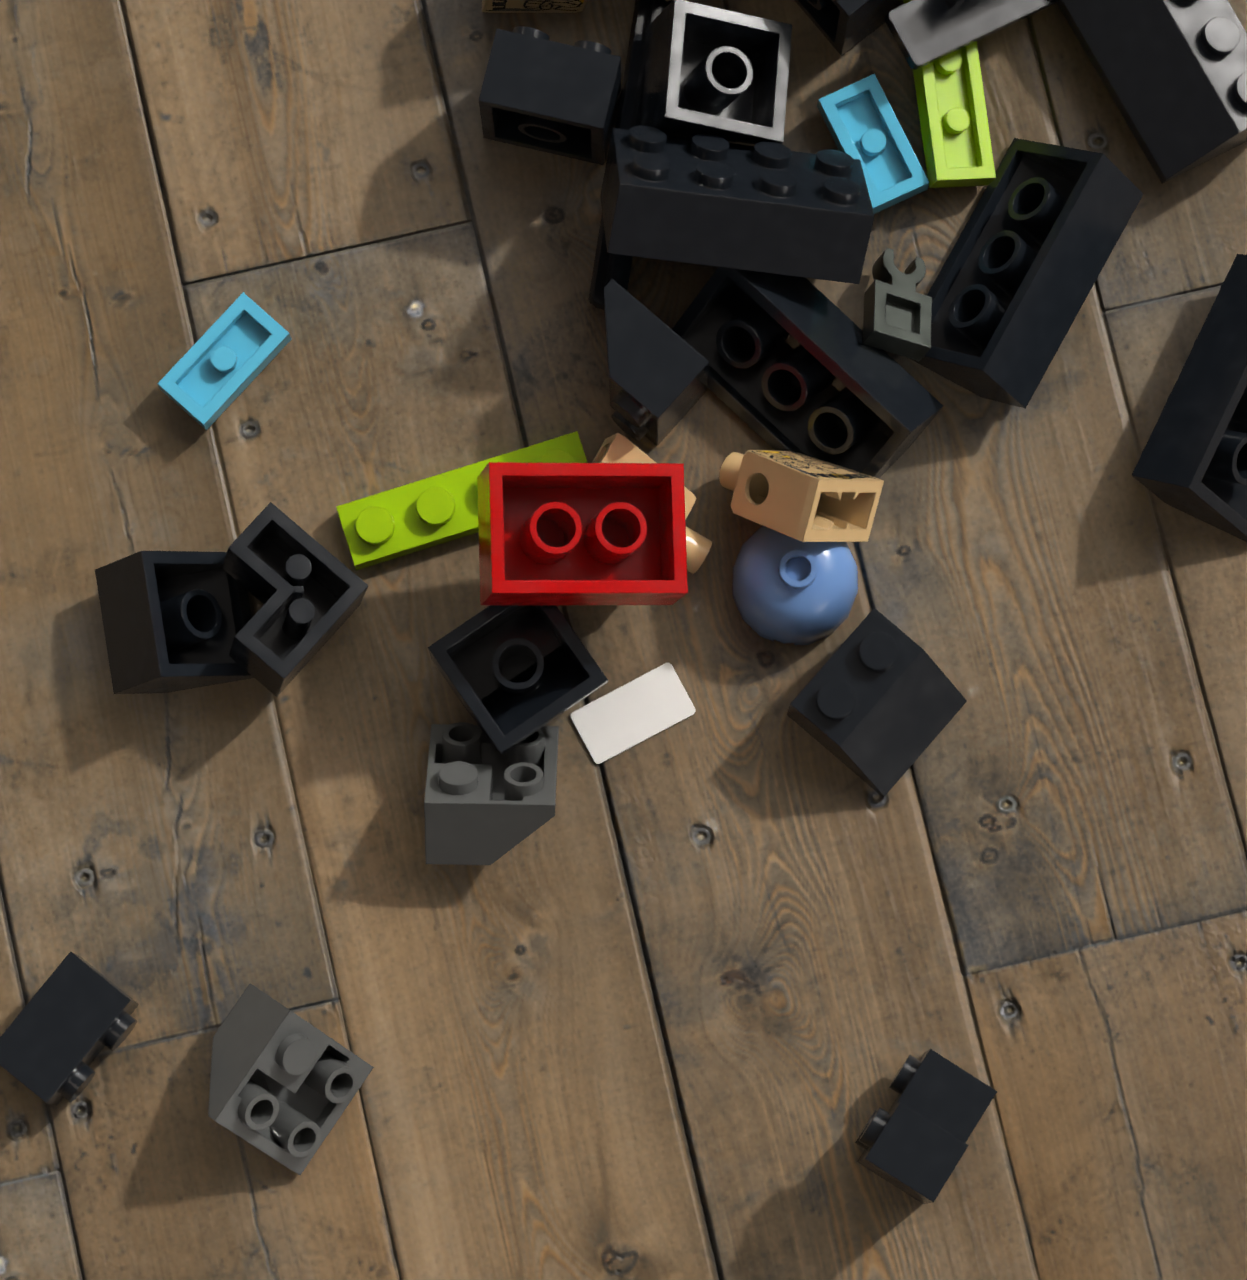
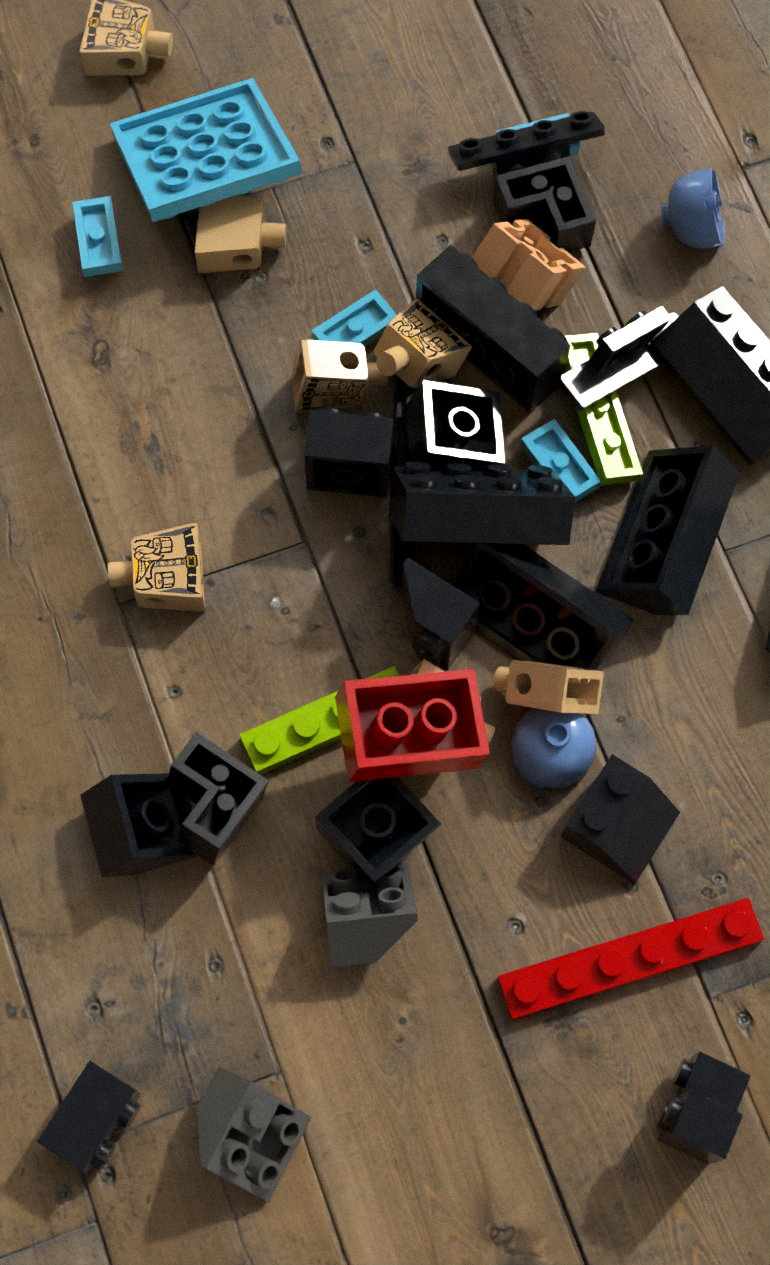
camera: 10 degrees left, 10 degrees down
(224, 361) = (153, 648): medium azure plate -> none
(254, 242) = (164, 570): none -> tan torso
(633, 713) = (456, 848): white sticker -> none
(859, 904) = (629, 959): none -> red plate
(894, 313) = (592, 564): pearl dark grey plate -> none

